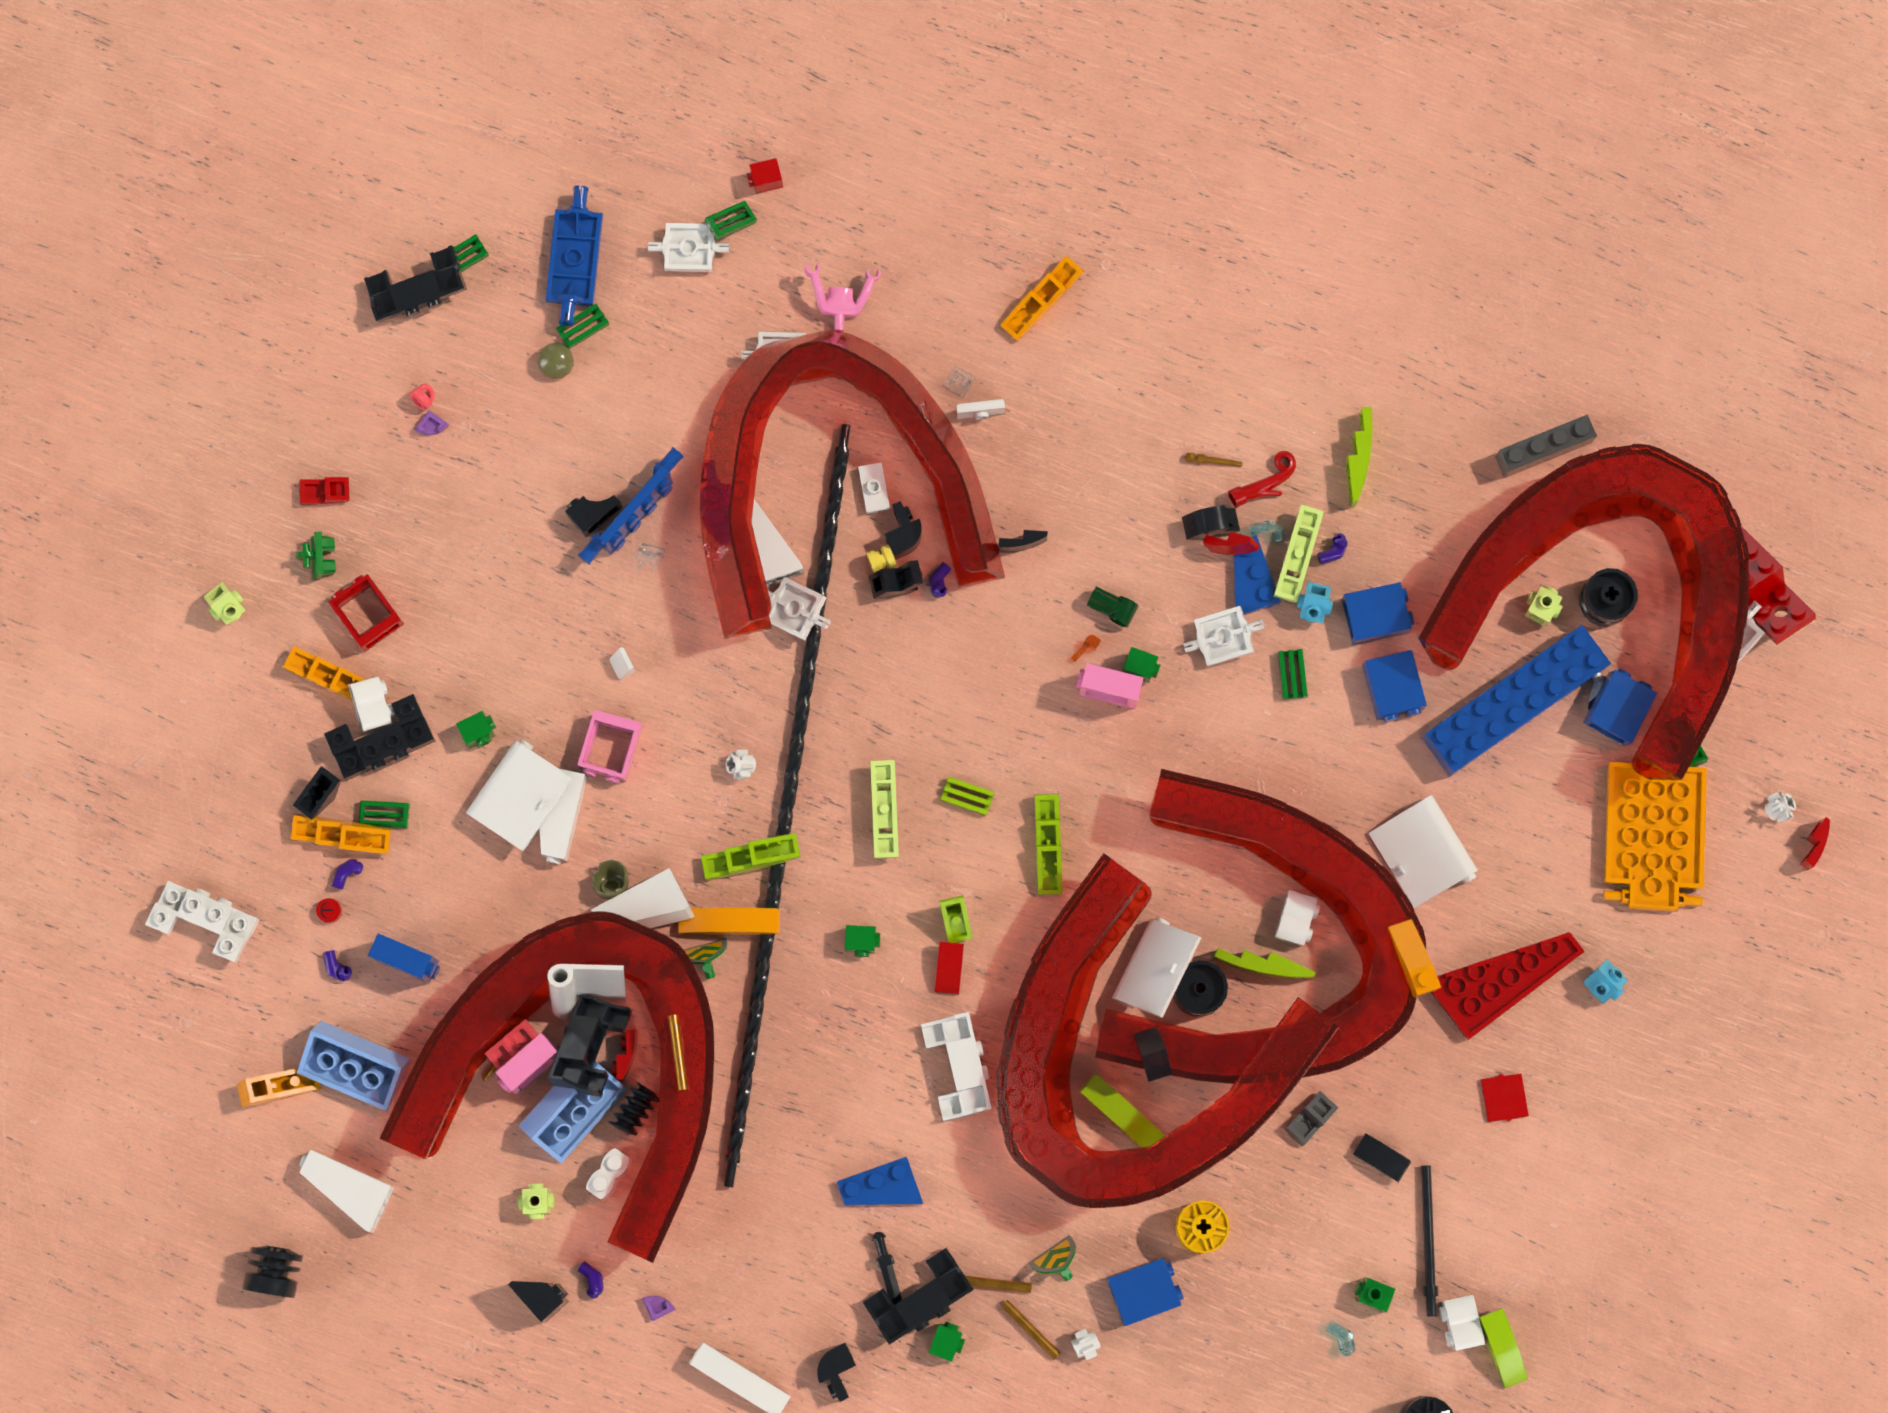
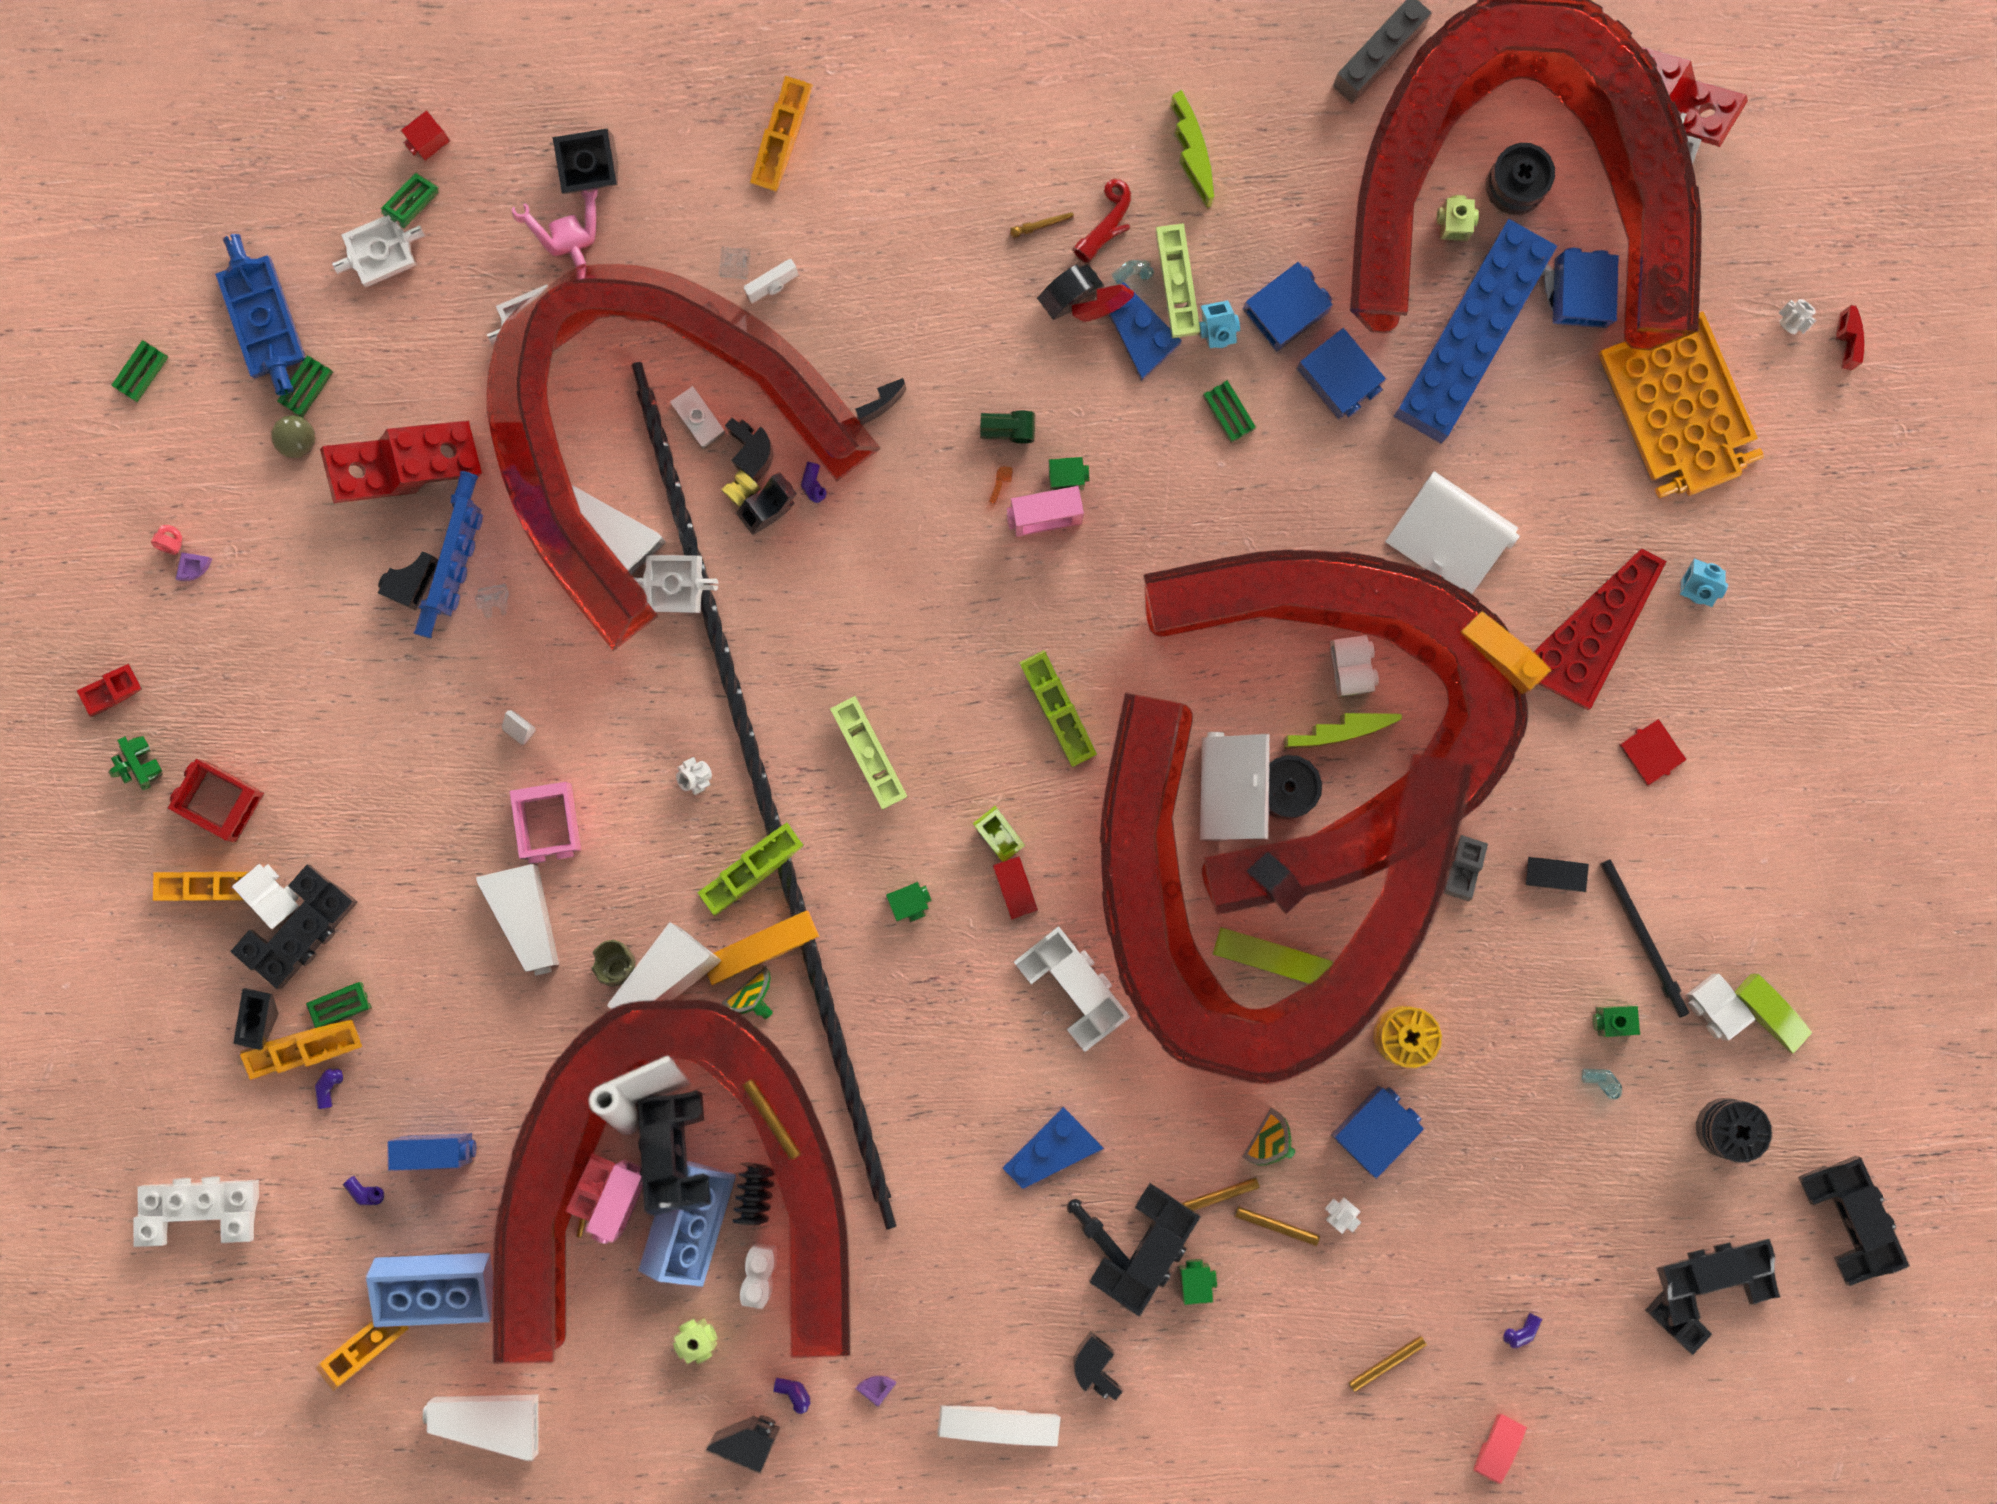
camera: 25 degrees left, 5 degrees up
(225, 603) = (57, 861): yellowish green brick -> none
(329, 910) = (328, 1136): red tile -> none
(418, 291) = (106, 429): black bracket -> none
(477, 729) = (394, 870): green brick -> none
(519, 795) = (472, 919): white door -> none
(624, 1062) = (718, 1151): red slope -> none
(629, 418) = (400, 461): none -> red bracket
(881, 253) = (586, 160): none -> black slope
(948, 789) = (949, 686): lime tile -> none
(1224, 636) = (1140, 404): white plate -> none
(1336, 549) = (1214, 260): dark purple arm -> none

